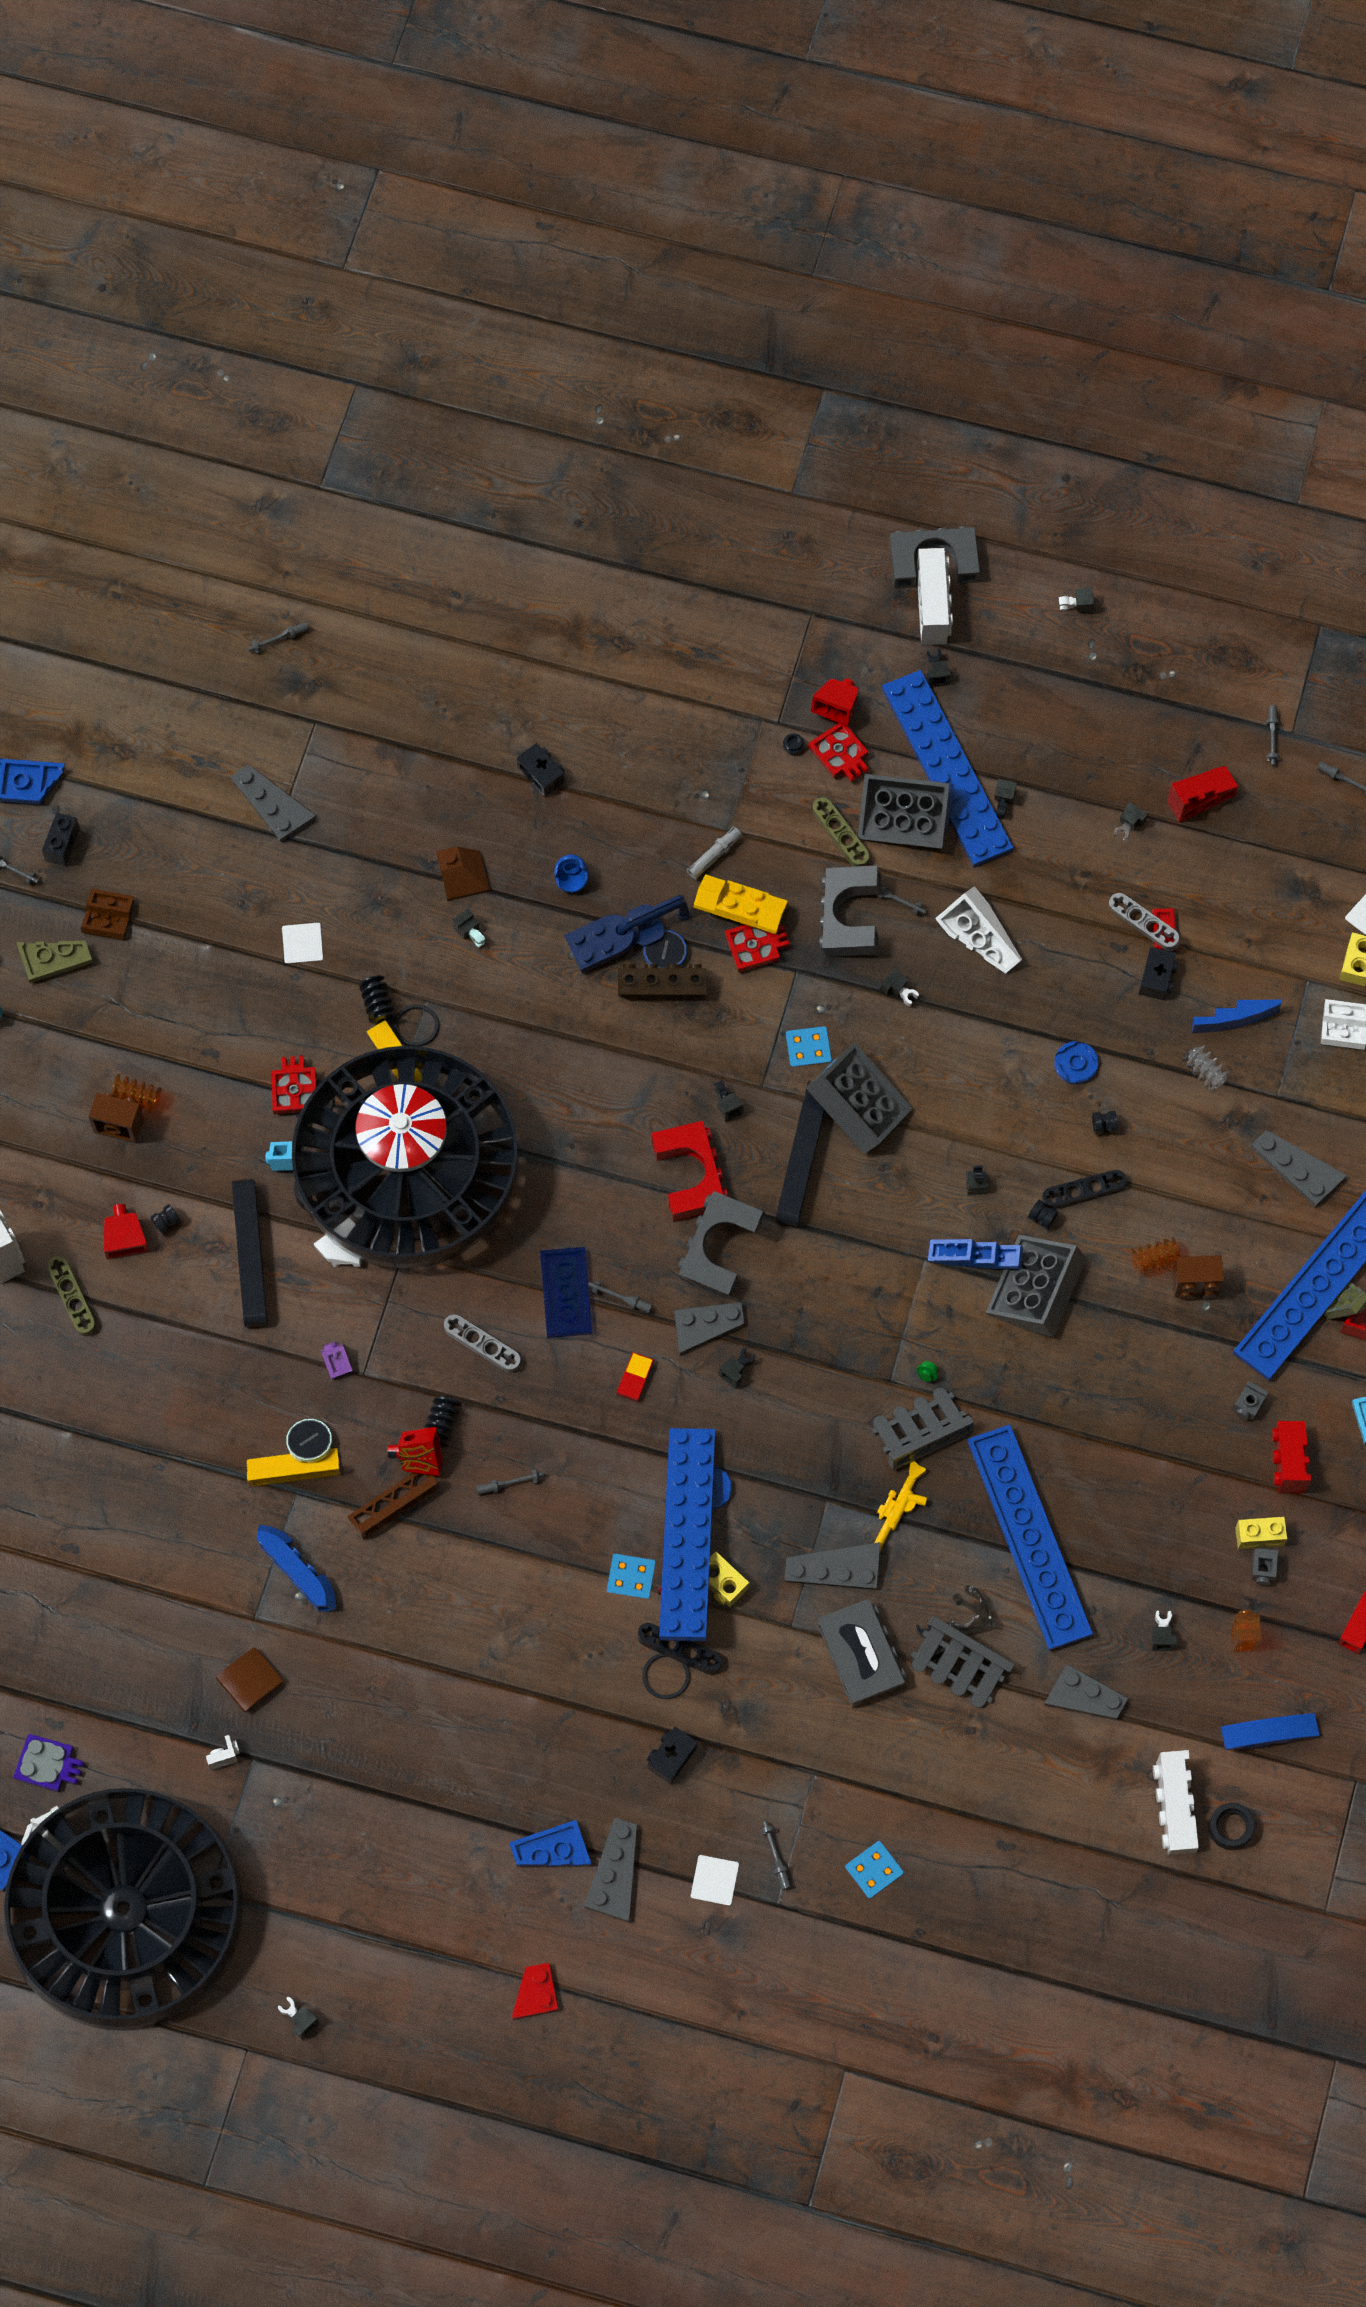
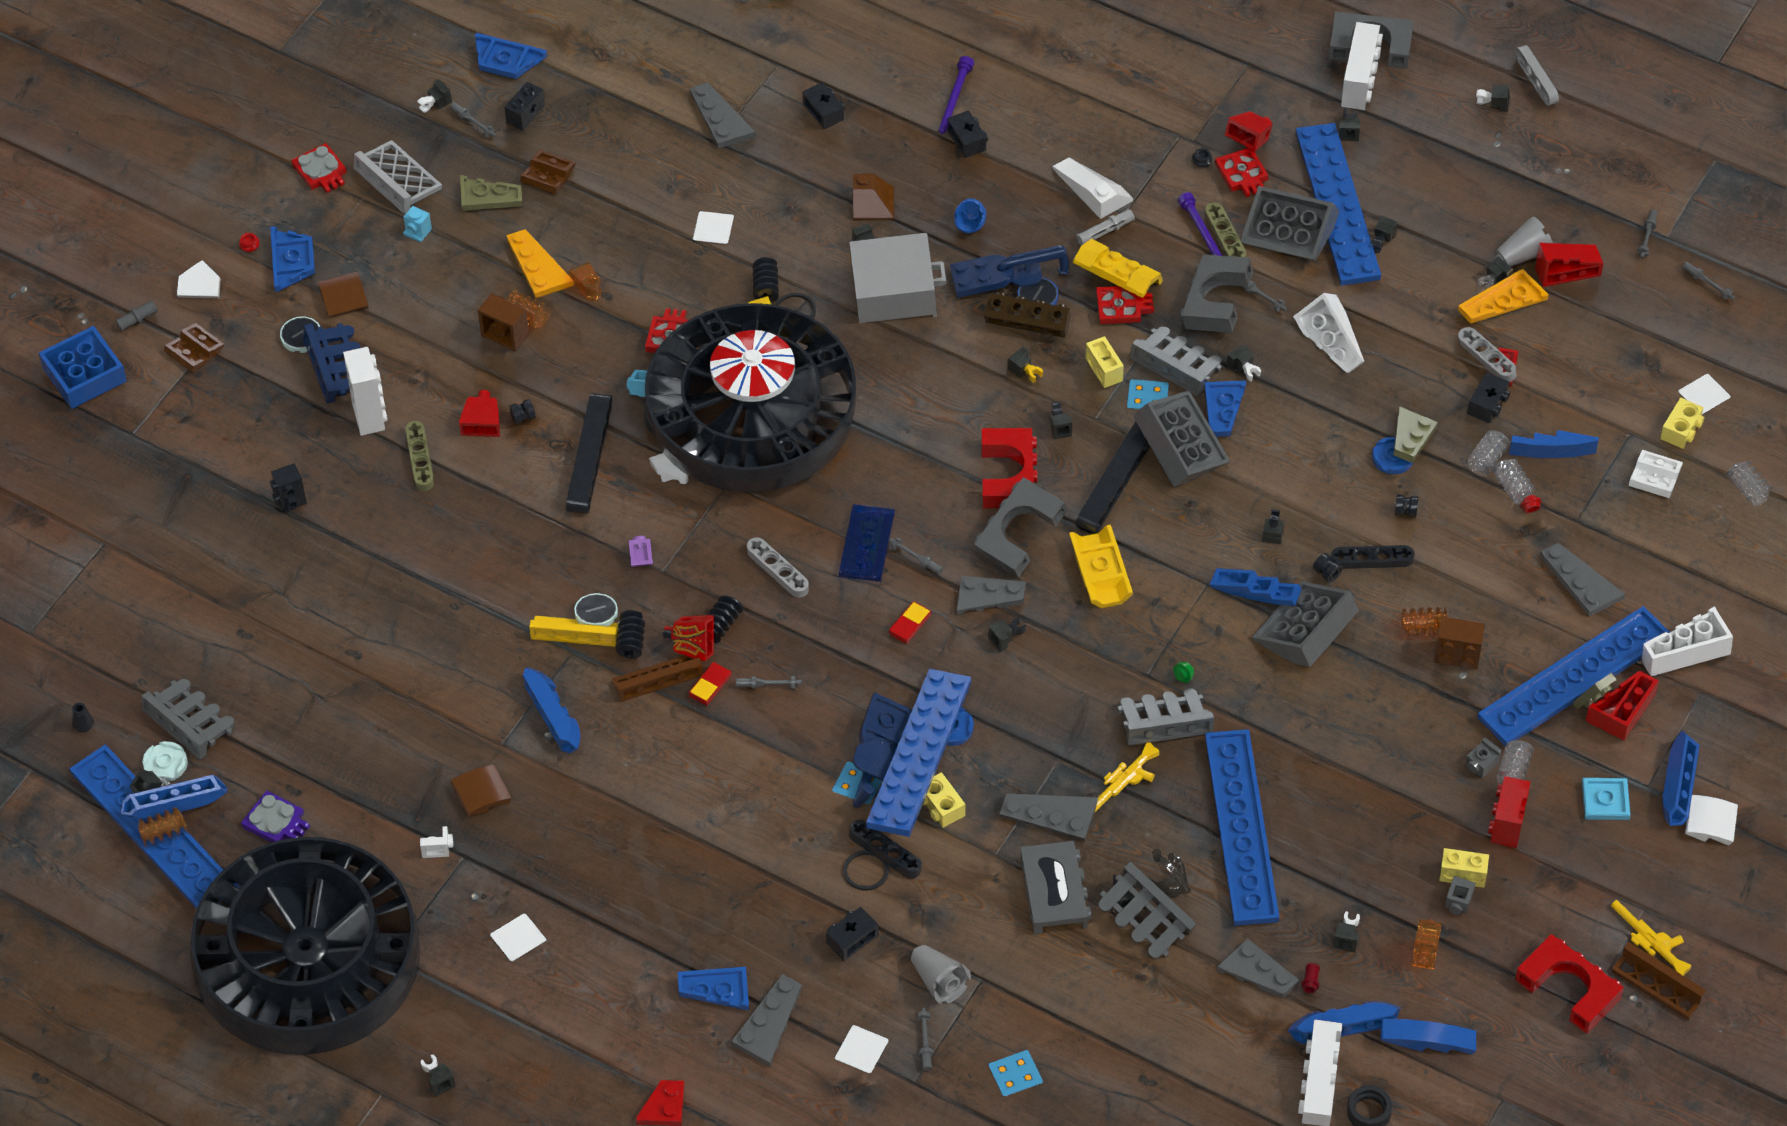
camera: 15 degrees right, 15 degrees down
(131, 1035) = (537, 265): none -> light orange wing
(188, 1042) = (586, 281): none -> clear orange piece
(334, 1838) = (518, 937): none -> white sticker
(351, 1462) = (630, 634): none -> black piece
(371, 763) = (823, 105): none -> black brick
(450, 1497) = (710, 683): none -> red tile
(513, 969) = (895, 277): none -> light grey container
(516, 683) = (964, 66): none -> dark purple piece
(643, 1509) = (878, 742): none -> dark blue plate
(669, 1041) = (1020, 364): none -> pearl dark grey piece
(691, 806) = (1094, 189): none -> white wedge
(756, 1022) = (1104, 362): none -> light yellow brick
(771, 1780) = (941, 974): none -> light grey cone
(792, 803) = (1187, 202): none -> dark purple piece
(814, 1267) = (1102, 568): none -> yellow piece
(823, 1009) = (1175, 370): none -> dark grey fence
(889, 1043) = (1223, 405): none -> blue wing
(1090, 1035) = (1412, 434): none -> wing
(1115, 564) = (1536, 75): none -> light grey beam
(1140, 1698) = (1310, 982): none -> dark red pin
(1146, 845) = (1505, 296): none -> light orange wing
(1152, 779) = (1523, 243): none -> light grey cone
(1171, 1041) = (1488, 452): none -> clear piece
(1193, 1730) = (1354, 1019): none -> blue brick
(1229, 1090) = (1531, 504): none -> red plate
(1282, 1399) = (1515, 760): none -> clear piece

